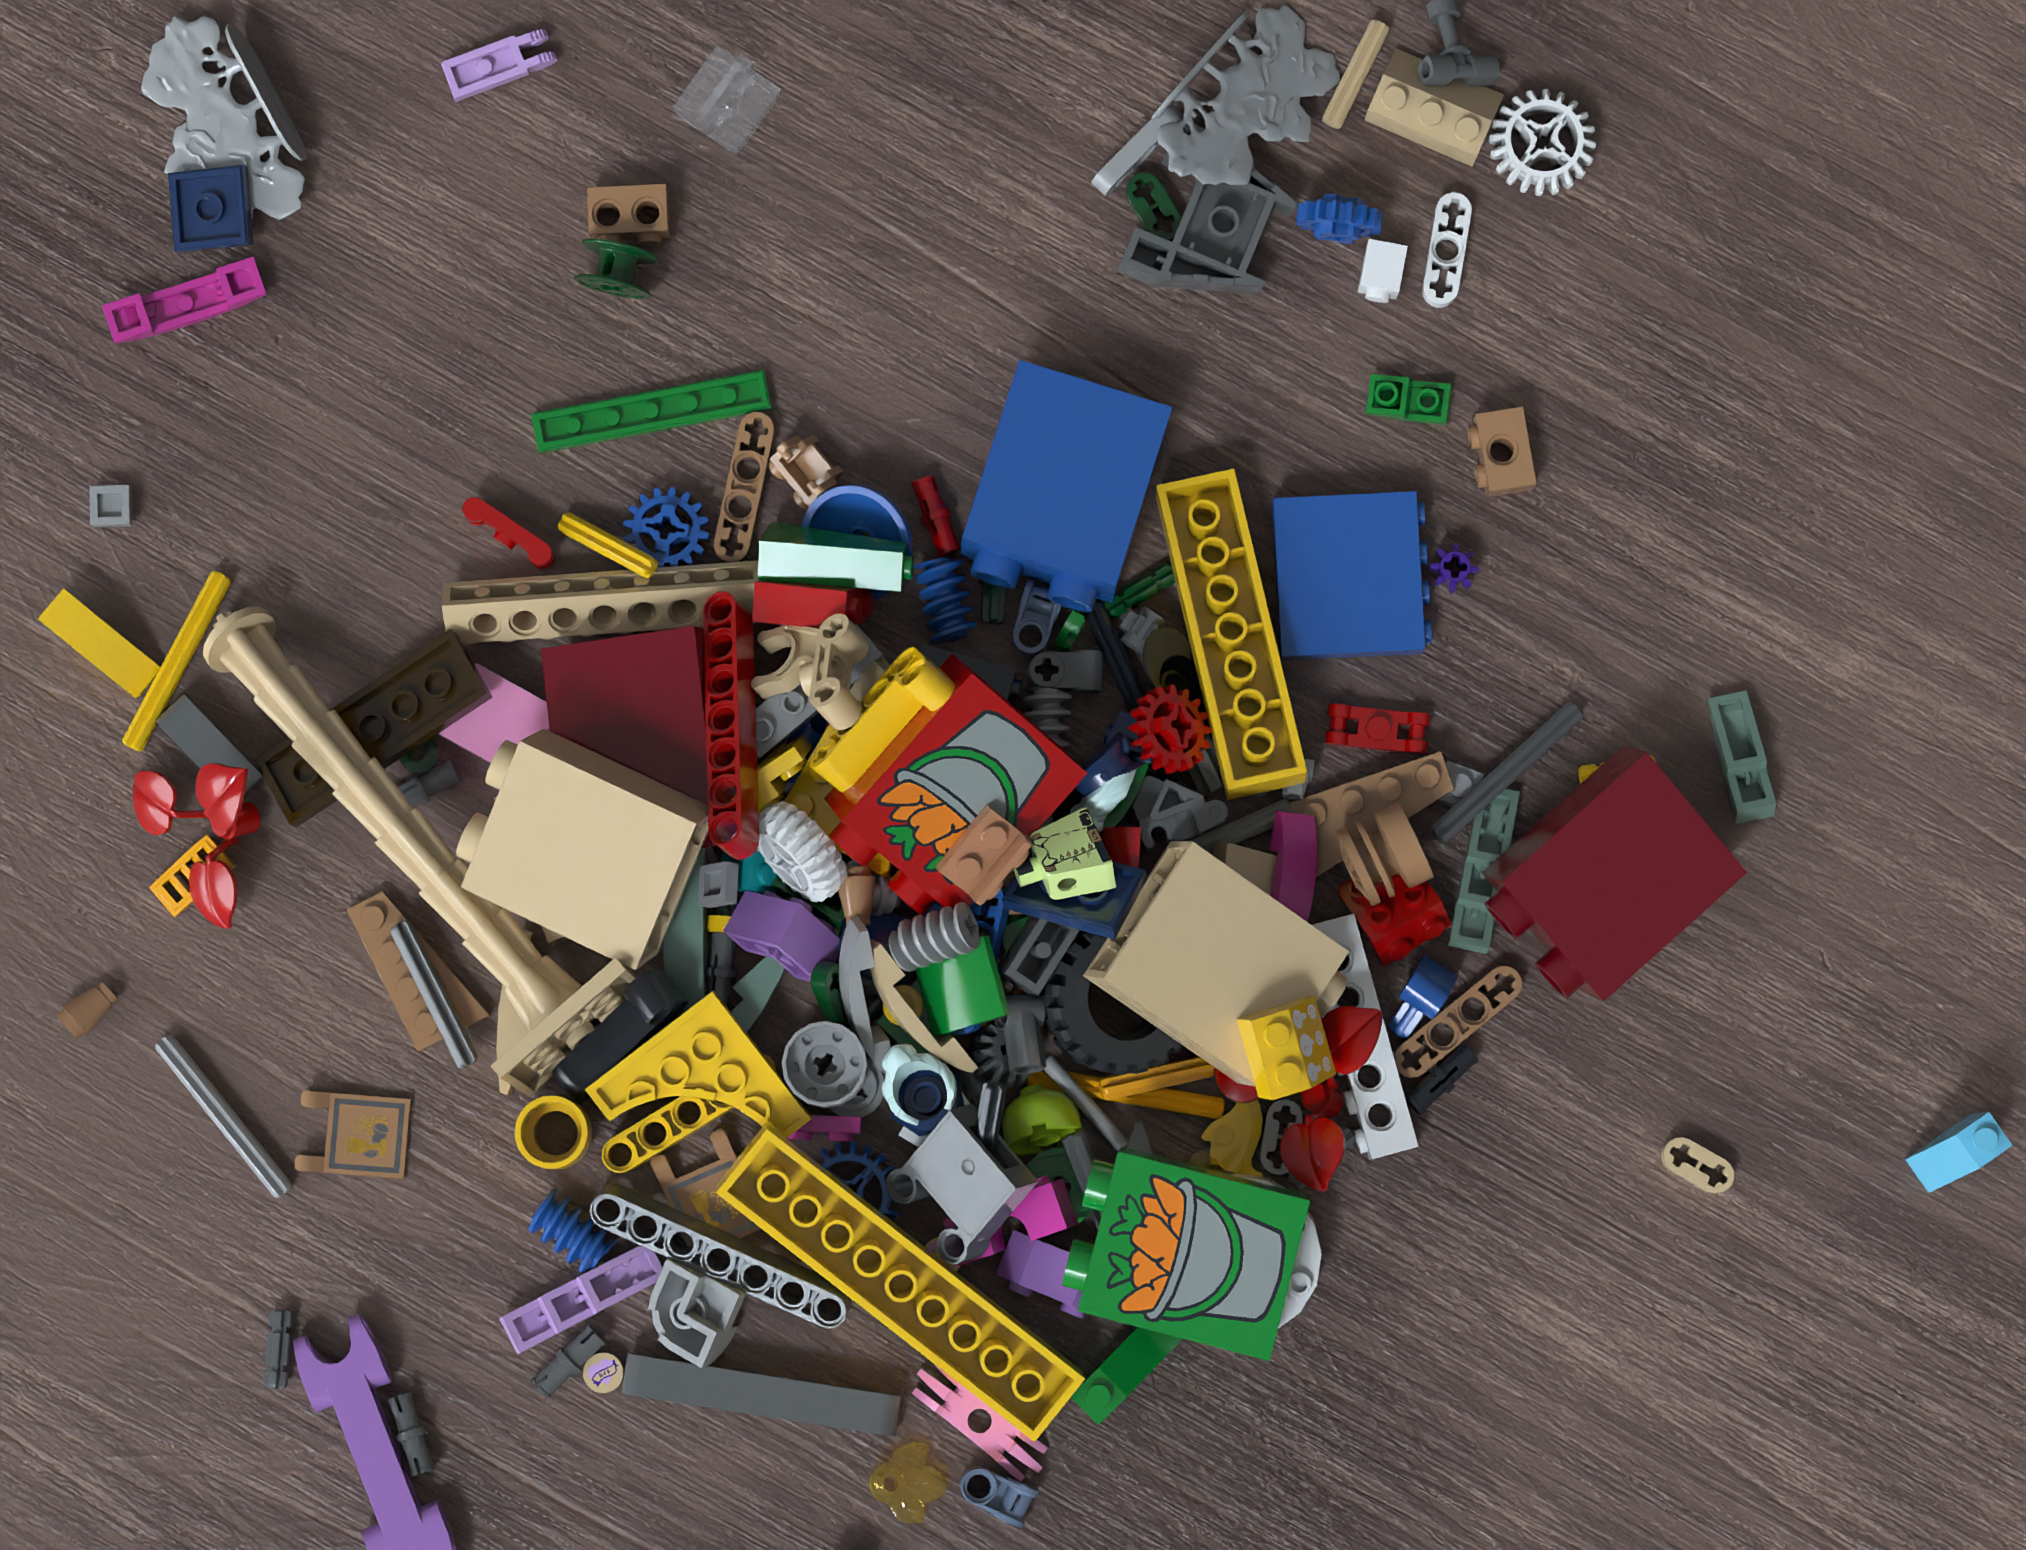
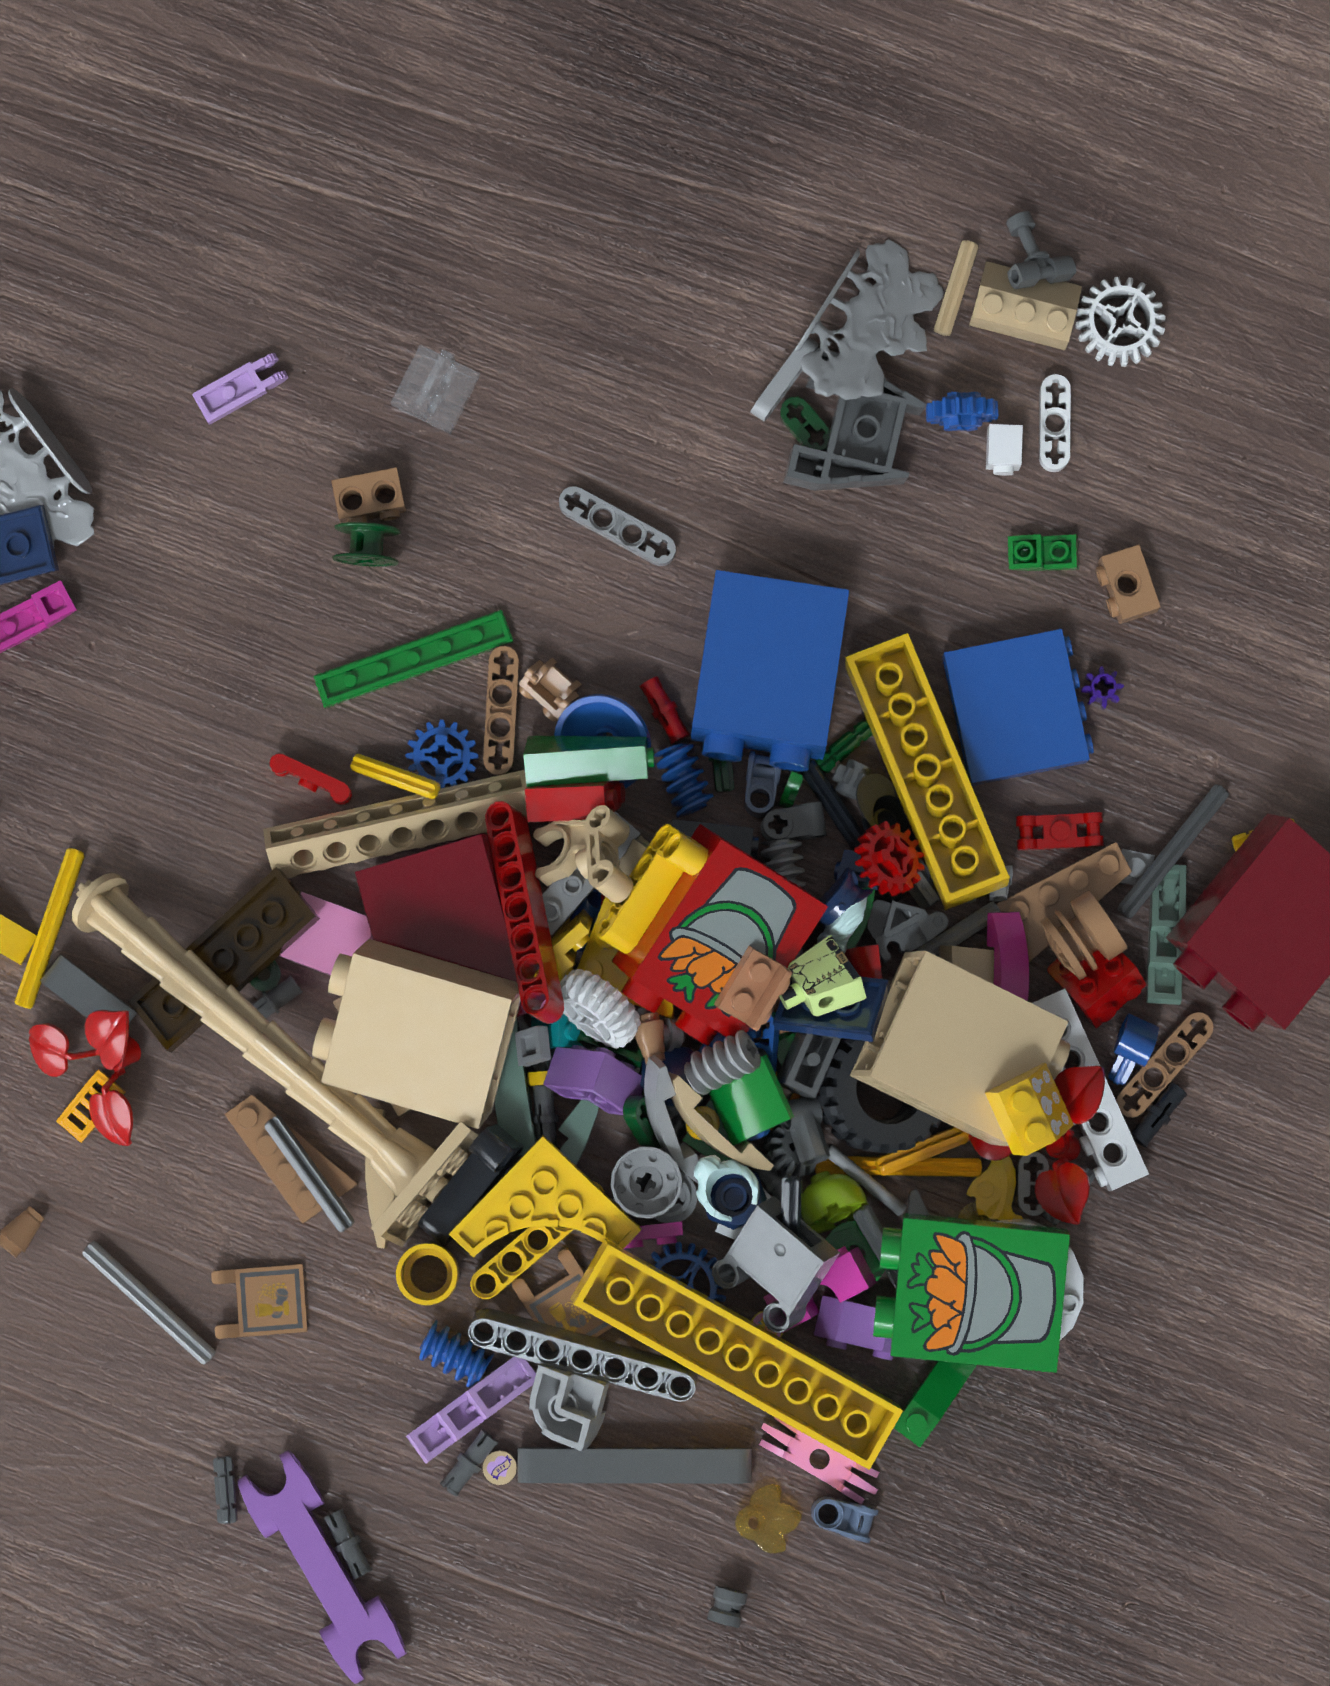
camera: 10 degrees left, 0 degrees up
(910, 297) = (619, 523): none -> light grey beam

